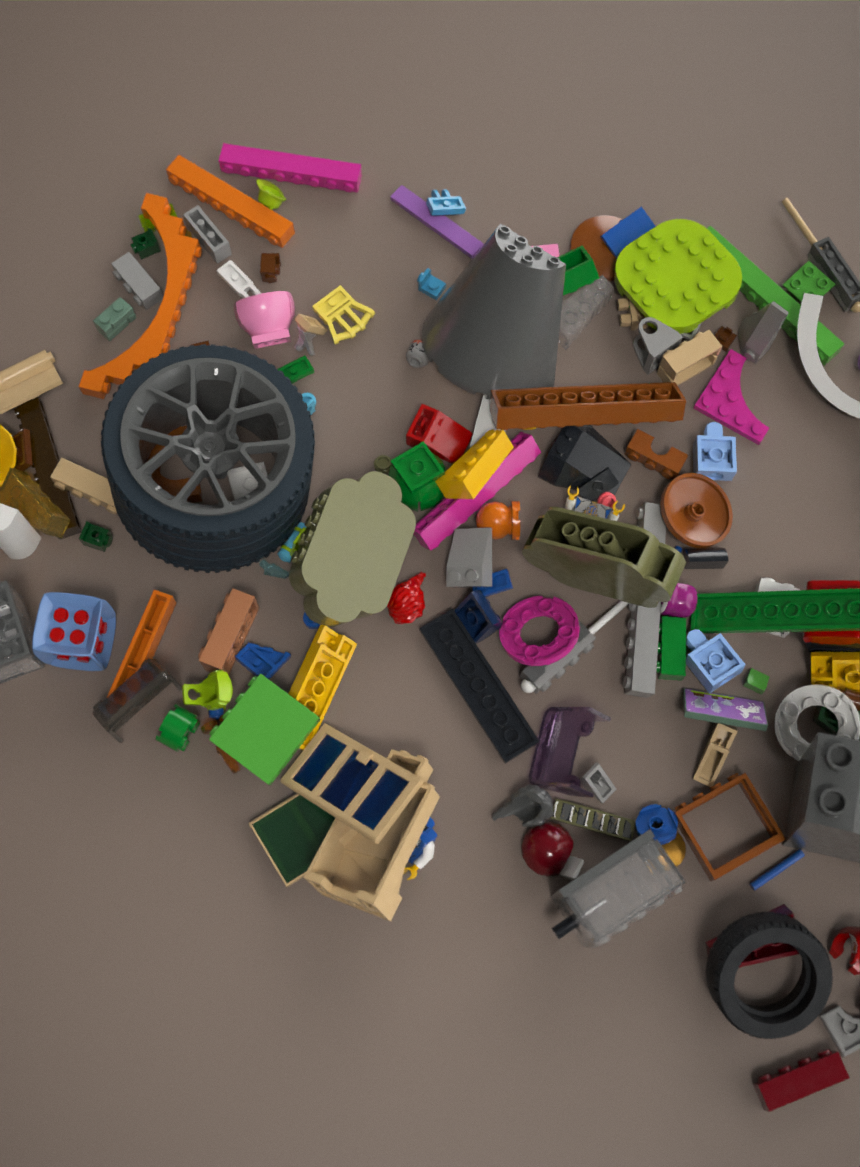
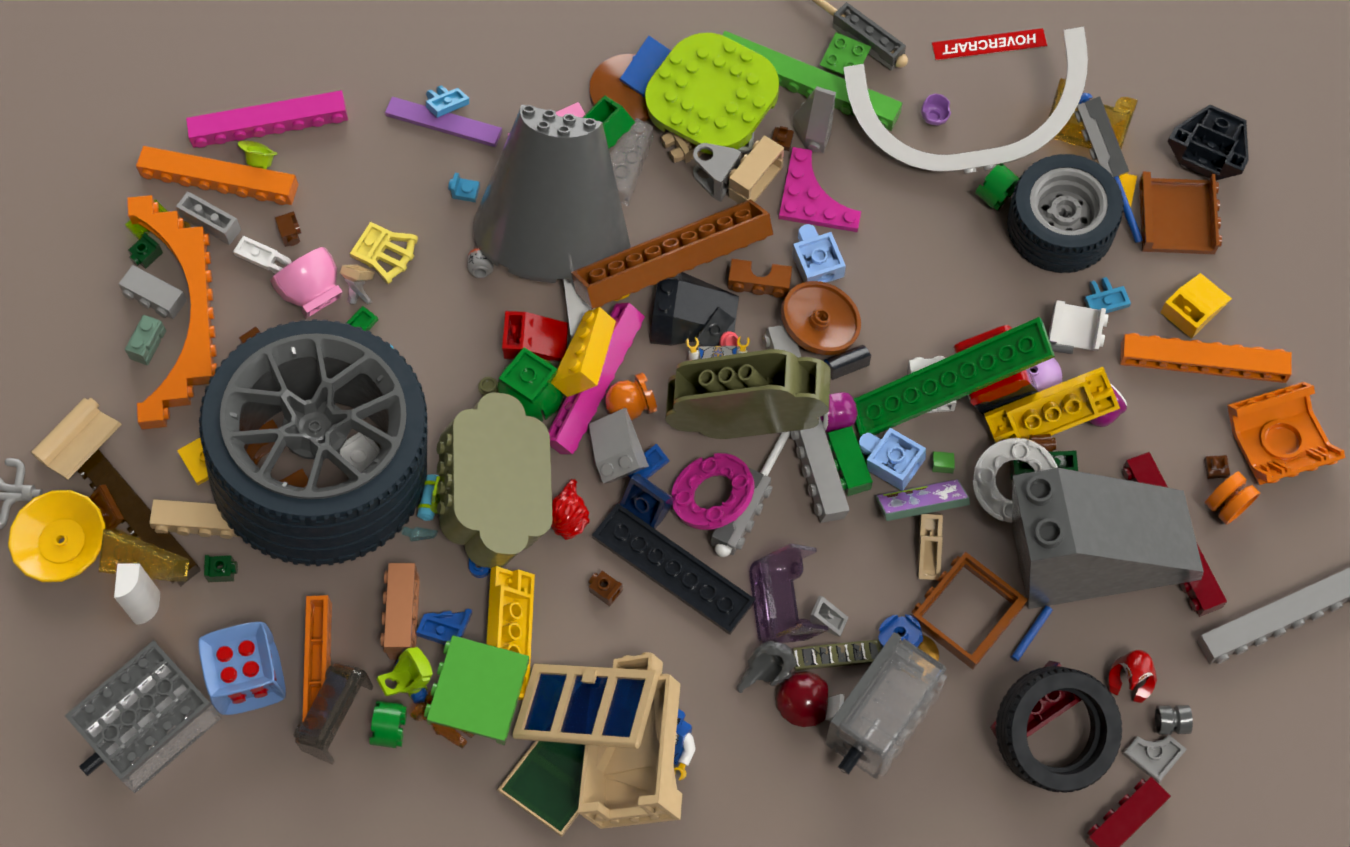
camera: 20 degrees left, 5 degrees down
(412, 686) = (605, 594): none -> reddish brown brick

